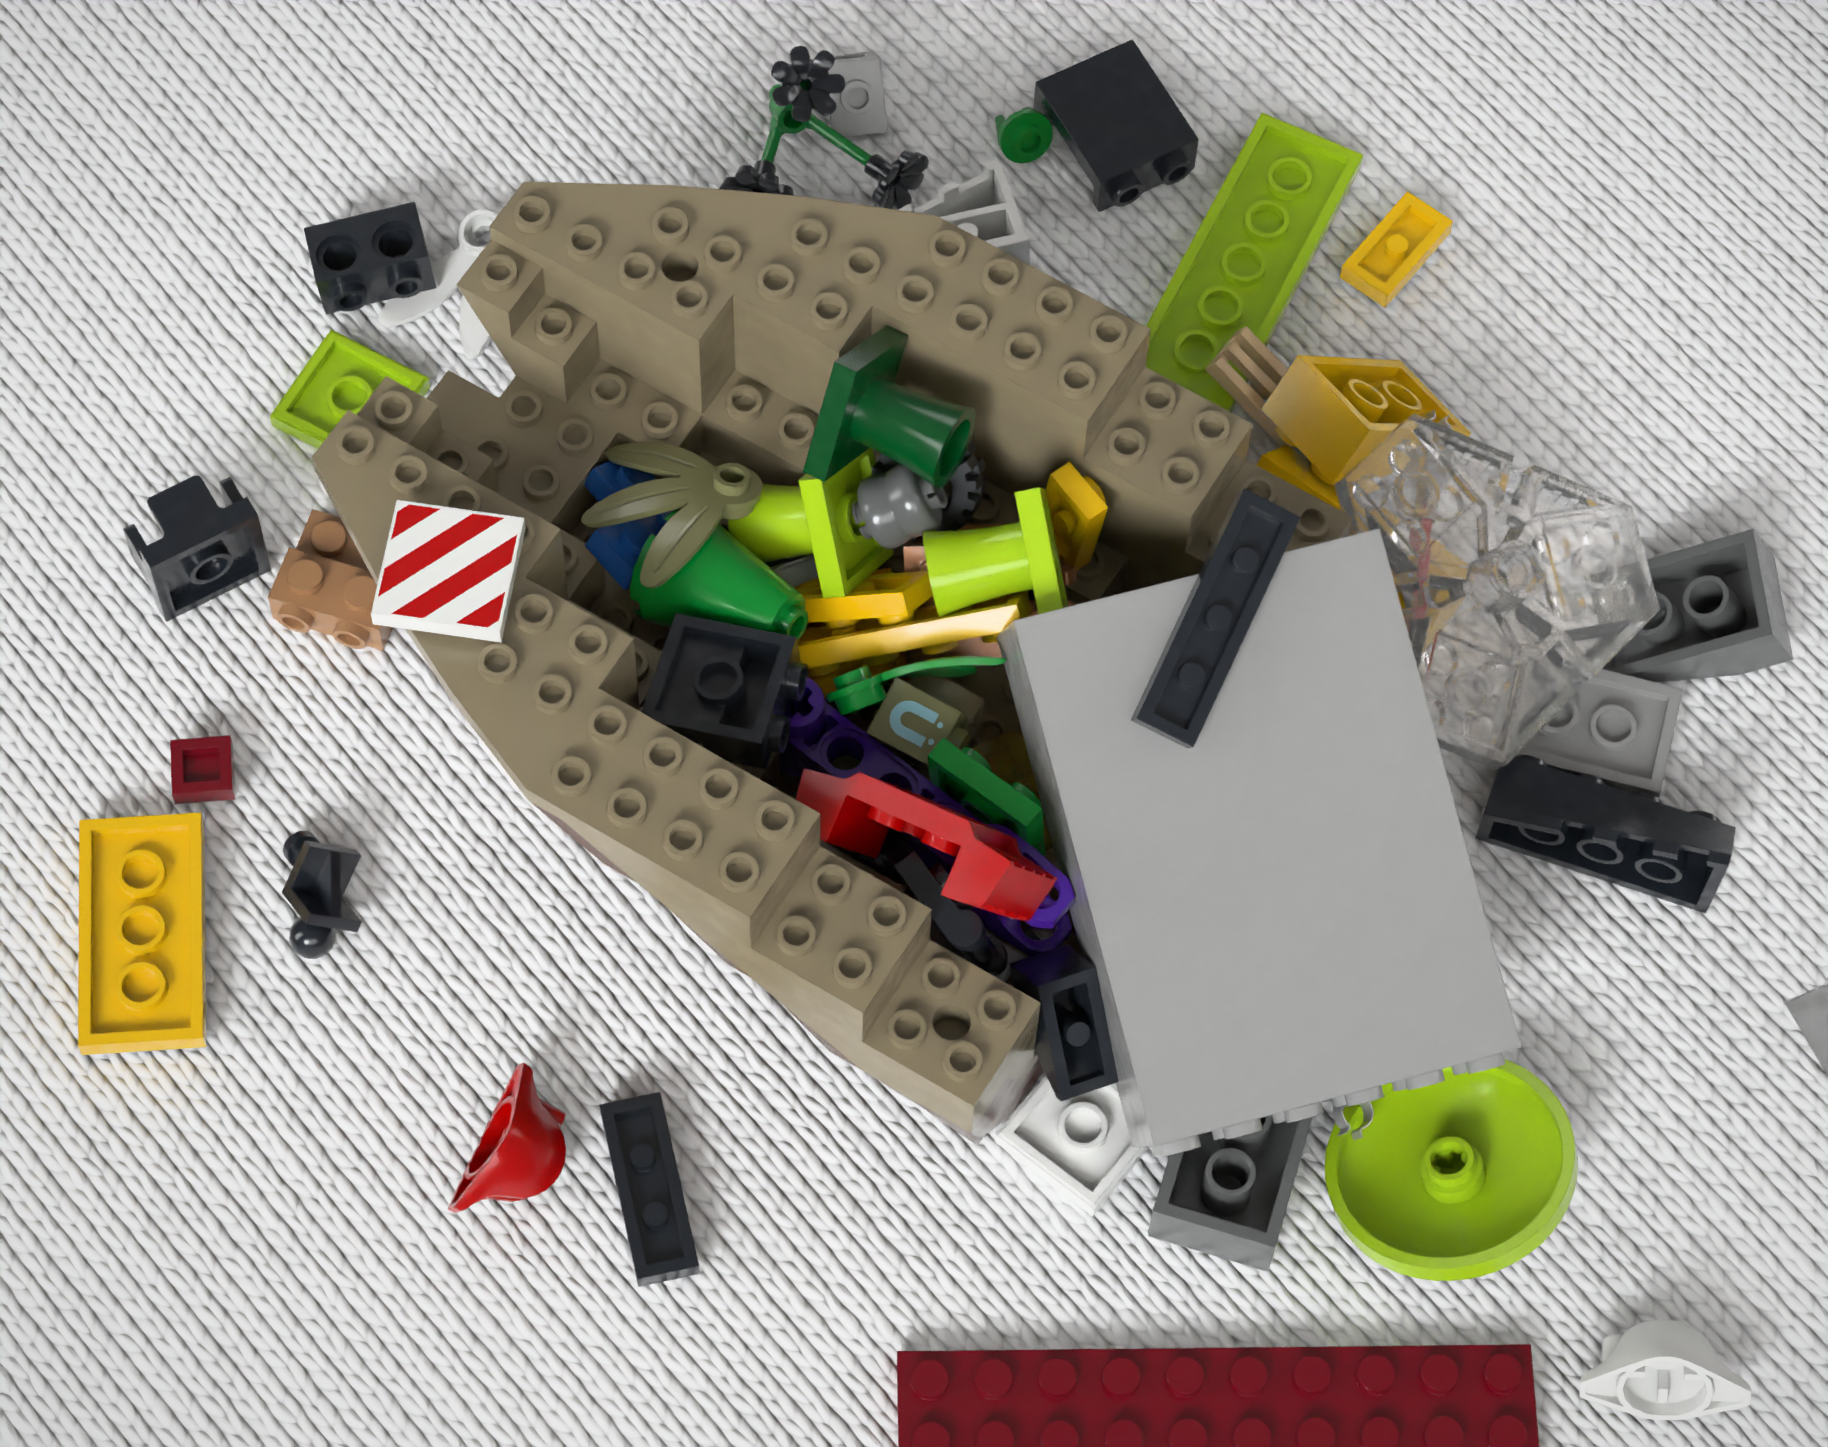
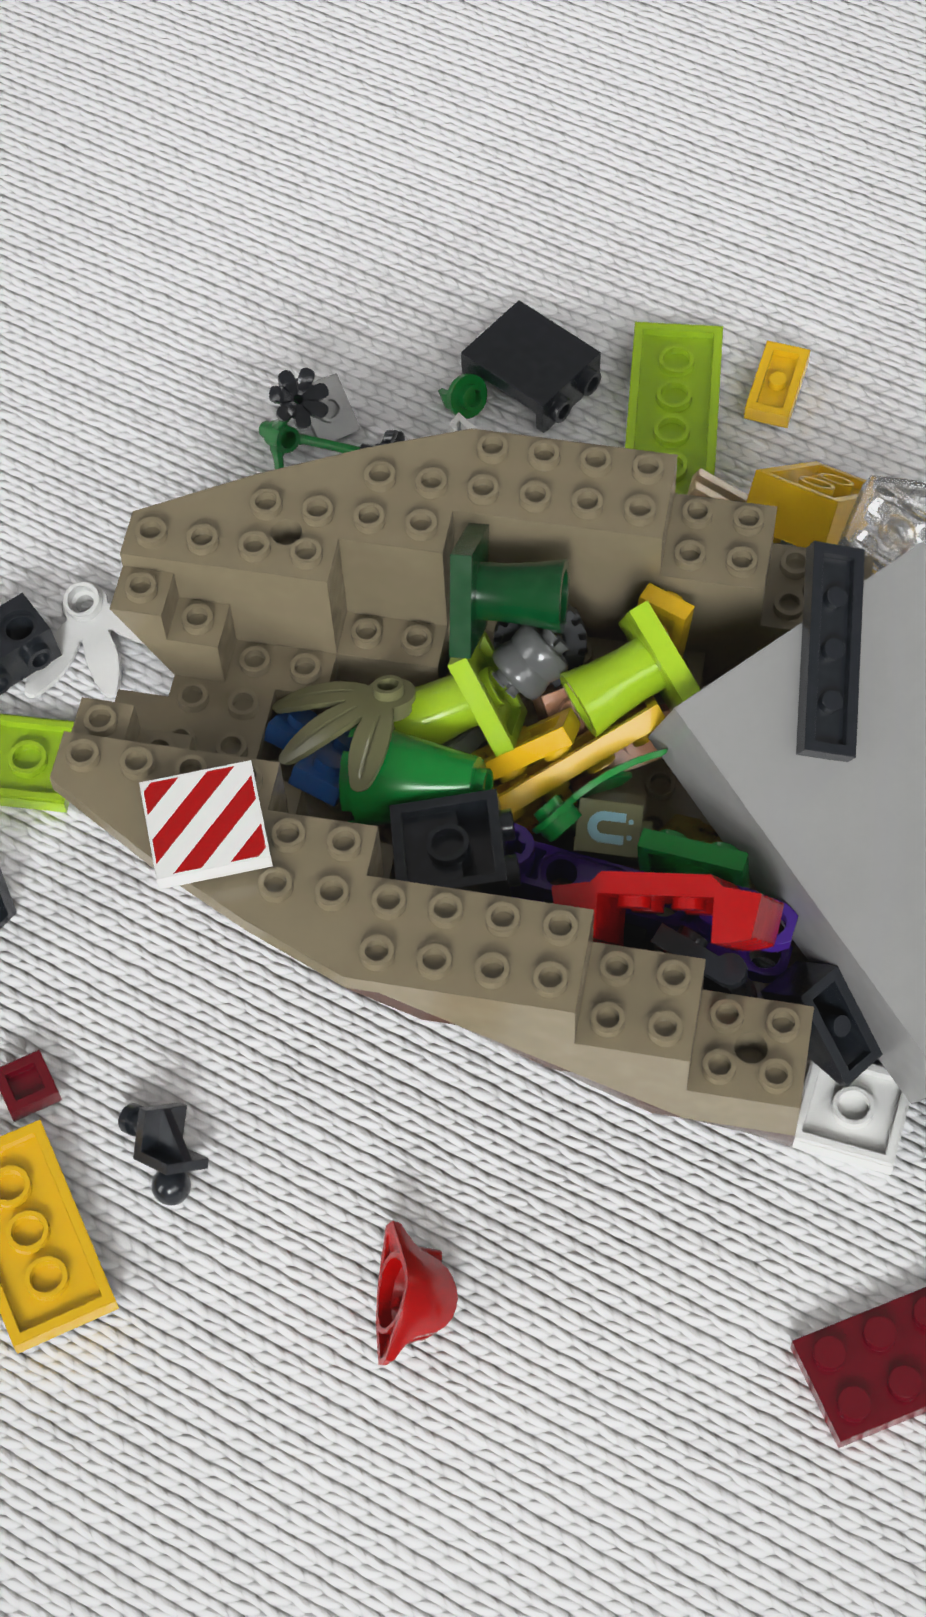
camera: 15 degrees left, 5 degrees down
(327, 587) = (81, 898): medium nougat plate -> none
(649, 1189) = (534, 1286): black plate -> none

